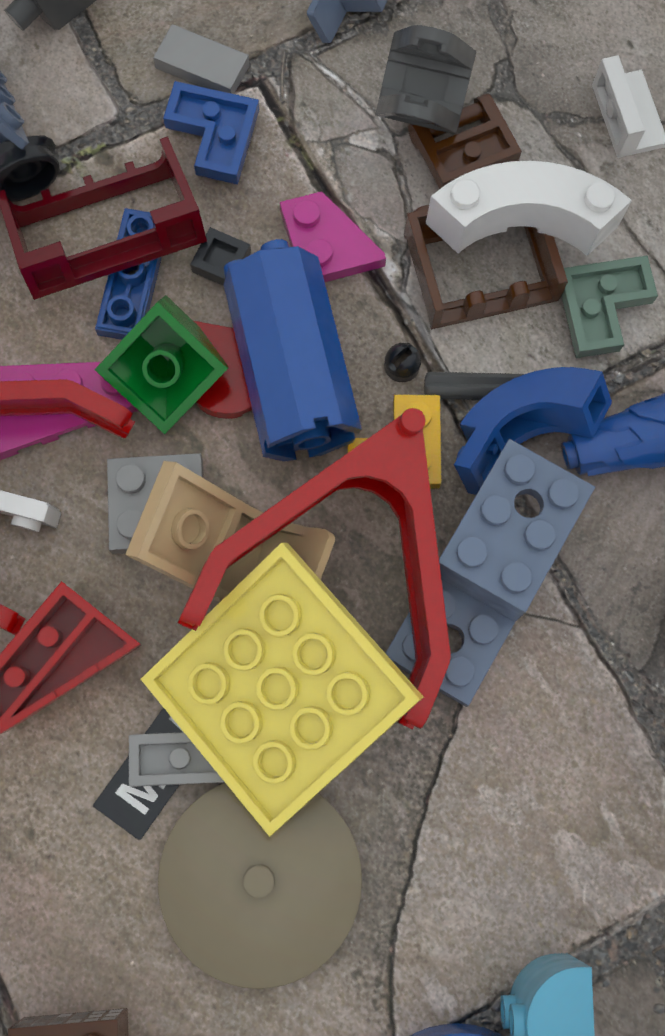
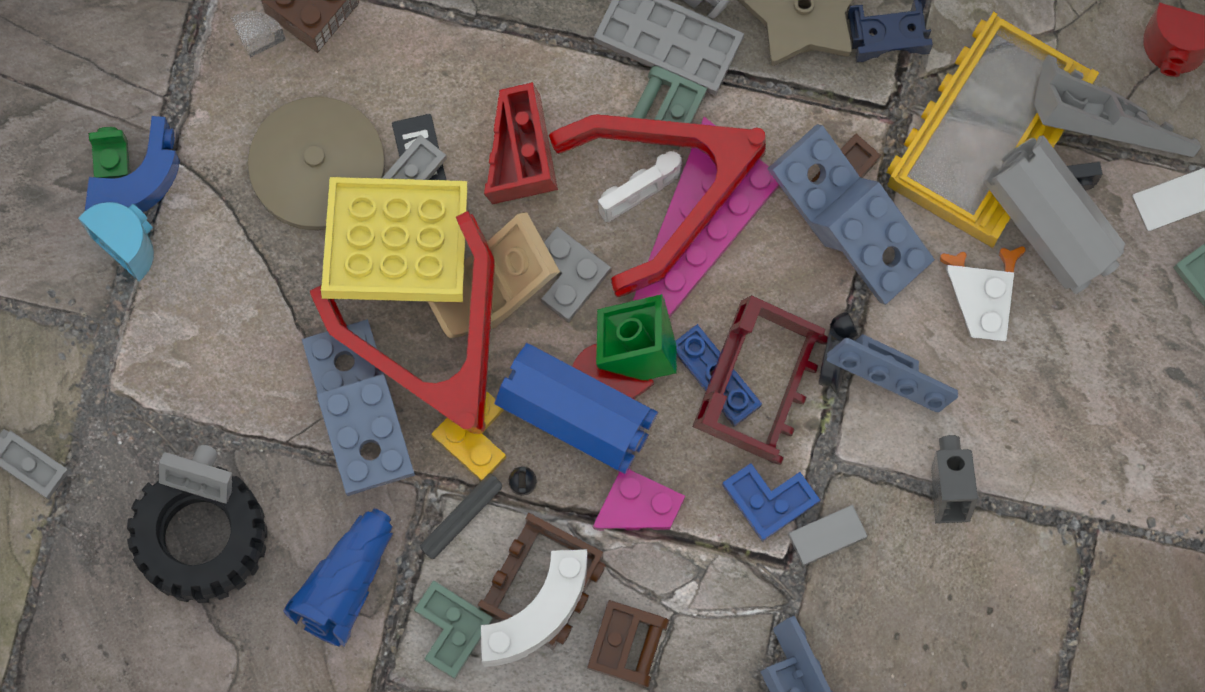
camera: 135 degrees right, 0 degrees up
(216, 253) = (678, 431): black plate -> none
(426, 78) = (670, 627): dark grey piece -> none
(528, 406) = (430, 505): blue arch -> none

